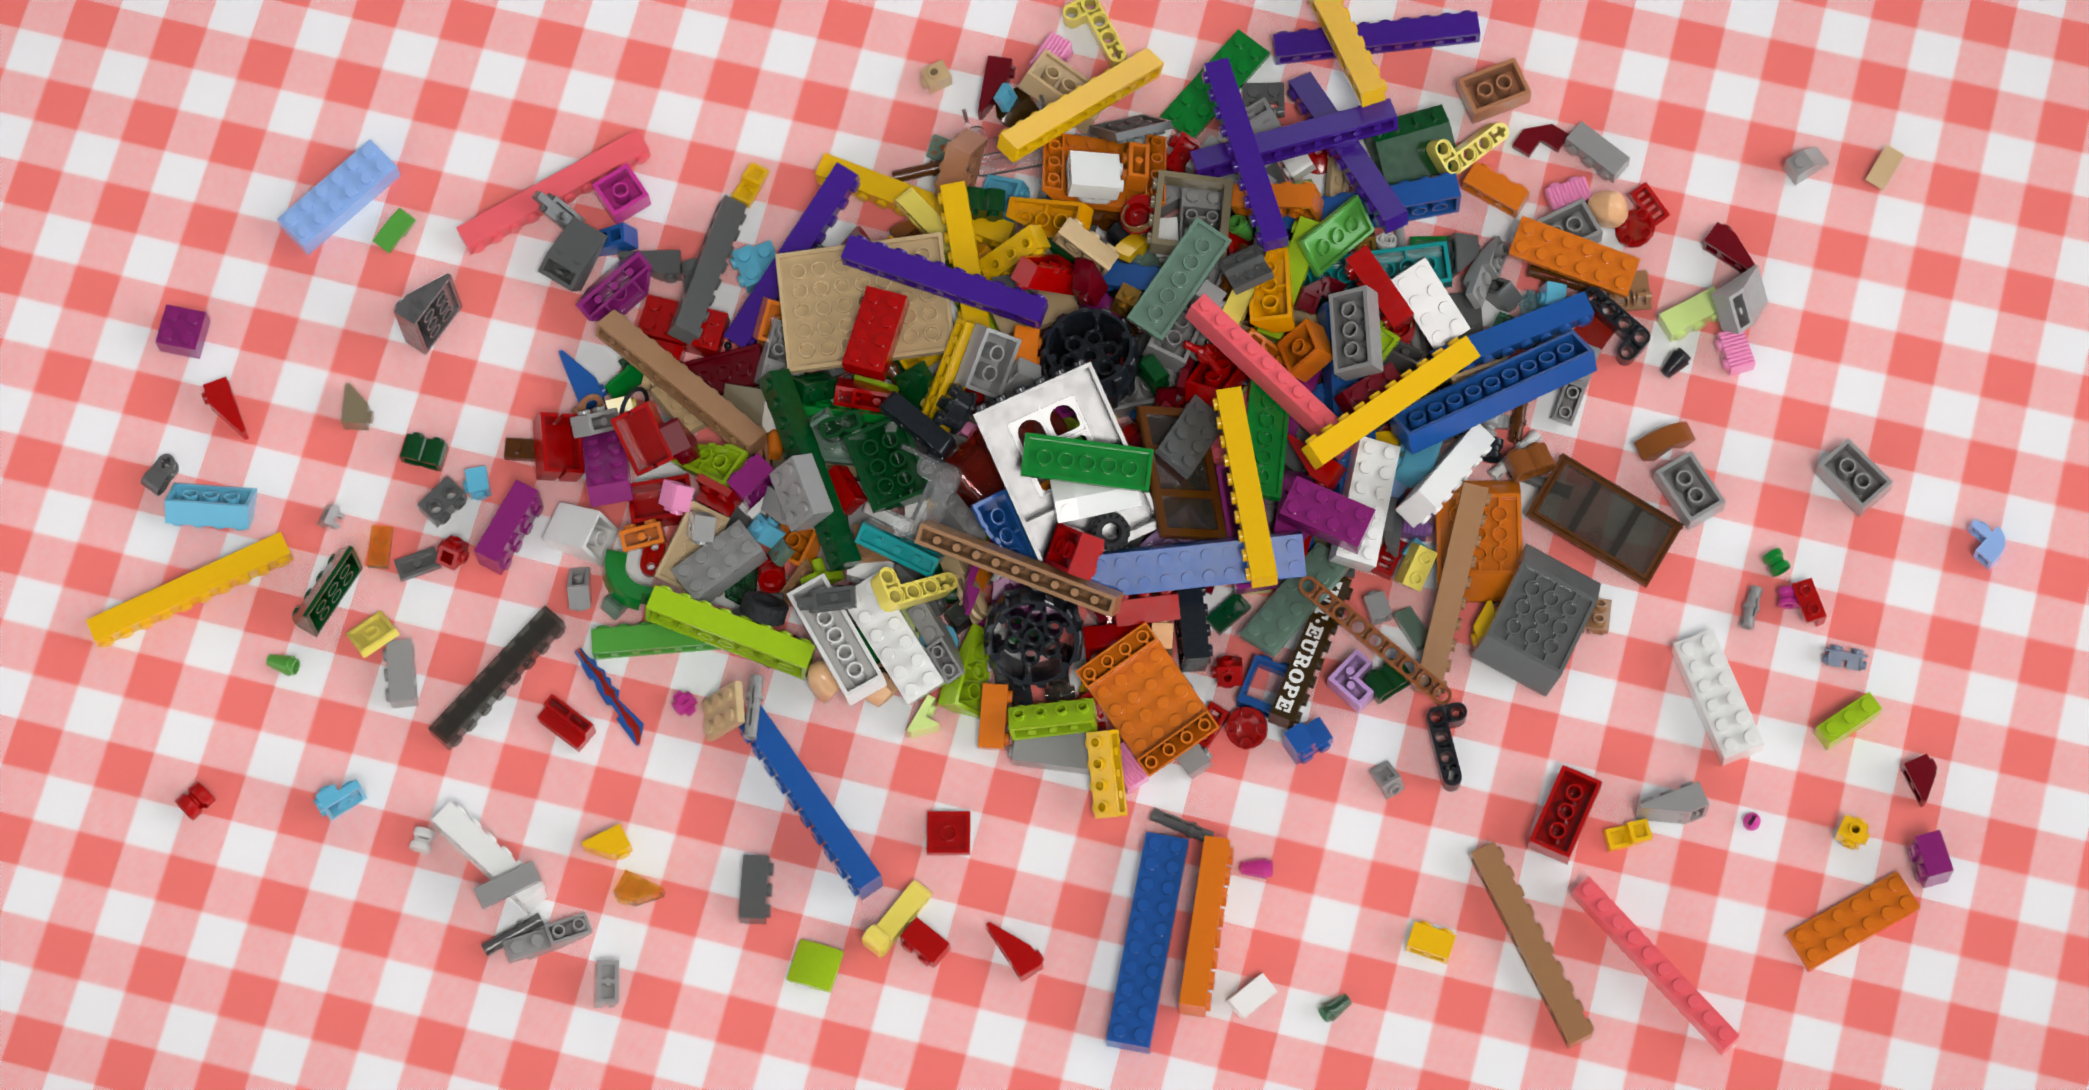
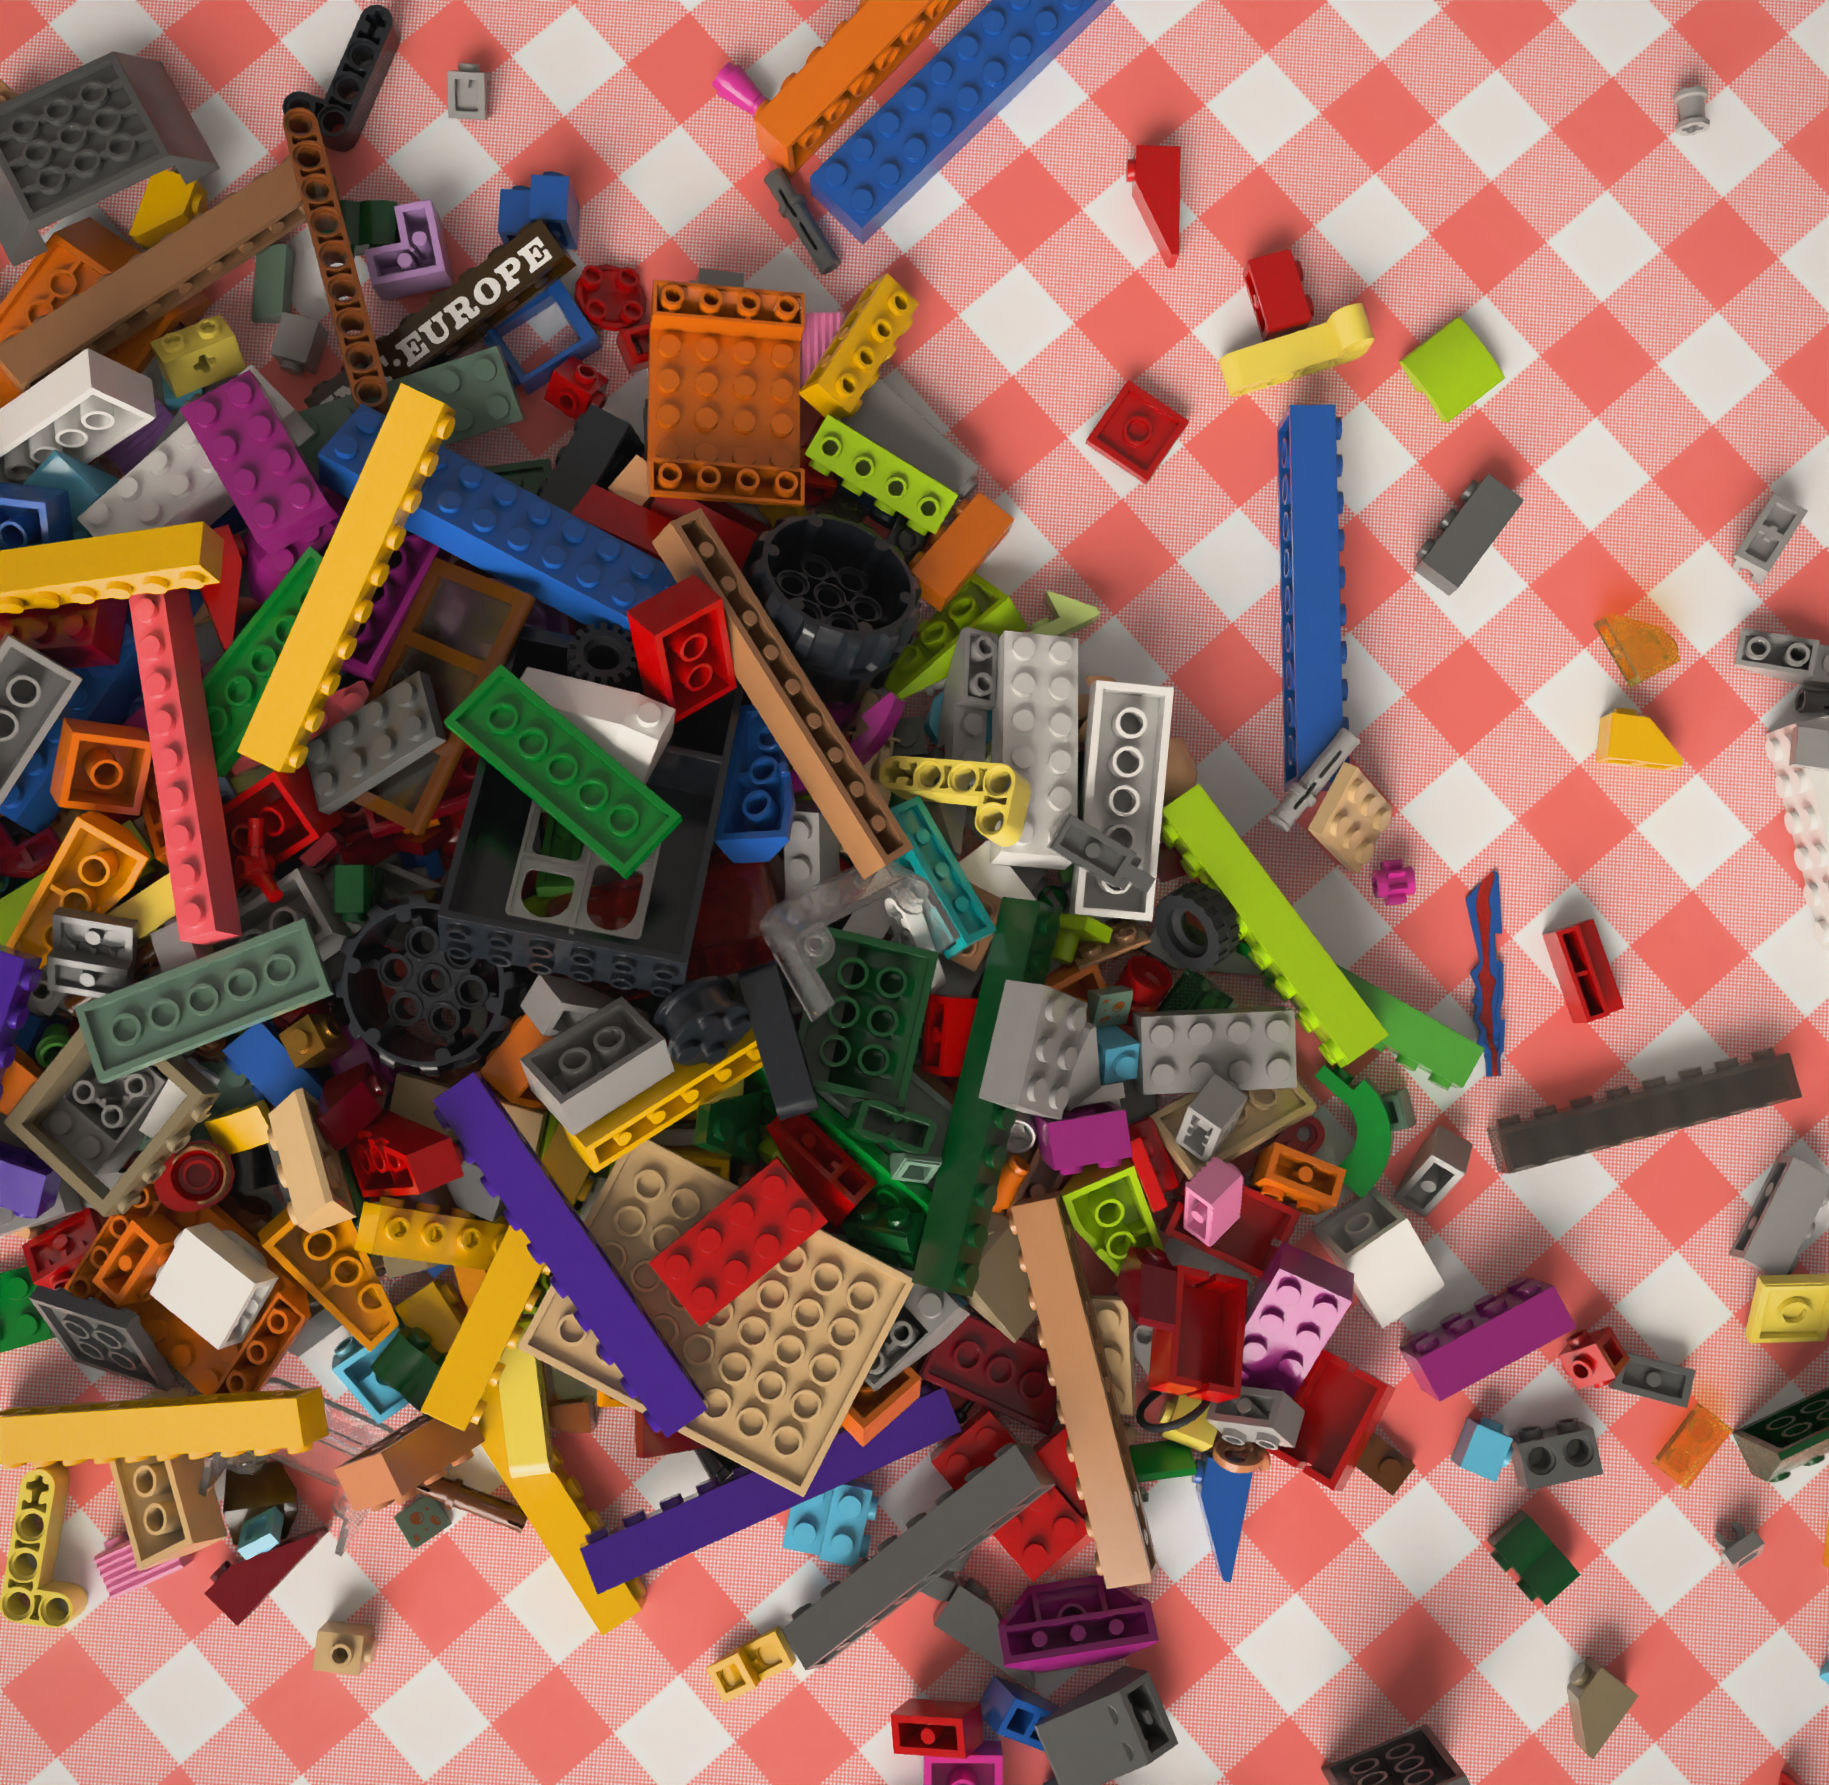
camera: 155 degrees left, 15 degrees up
(649, 209) = (937, 1728): none -> red brick

